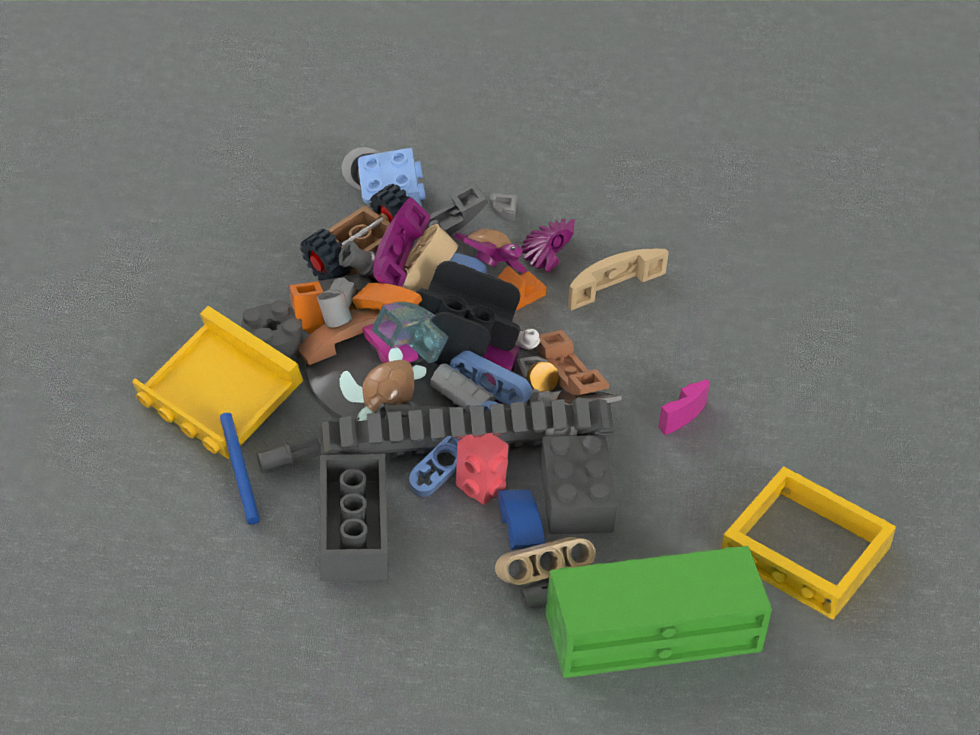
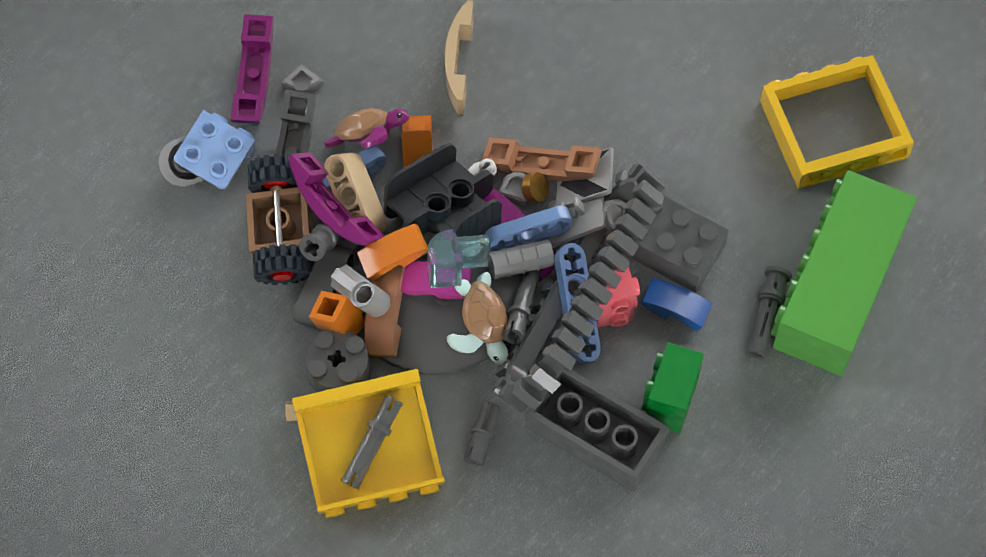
camera: 50 degrees left, 20 degrees up
(213, 383) = (372, 441): none -> dark grey pin
(239, 468) = (473, 482): blue bar -> none
(433, 546) = (672, 385): none -> green brick
(489, 175) = (254, 69): none -> magenta slope
(530, 557) = (735, 316): tan beam -> none
(543, 244) = (374, 80): magenta hair -> none
(682, 411) = (642, 106): dark pink slope -> none

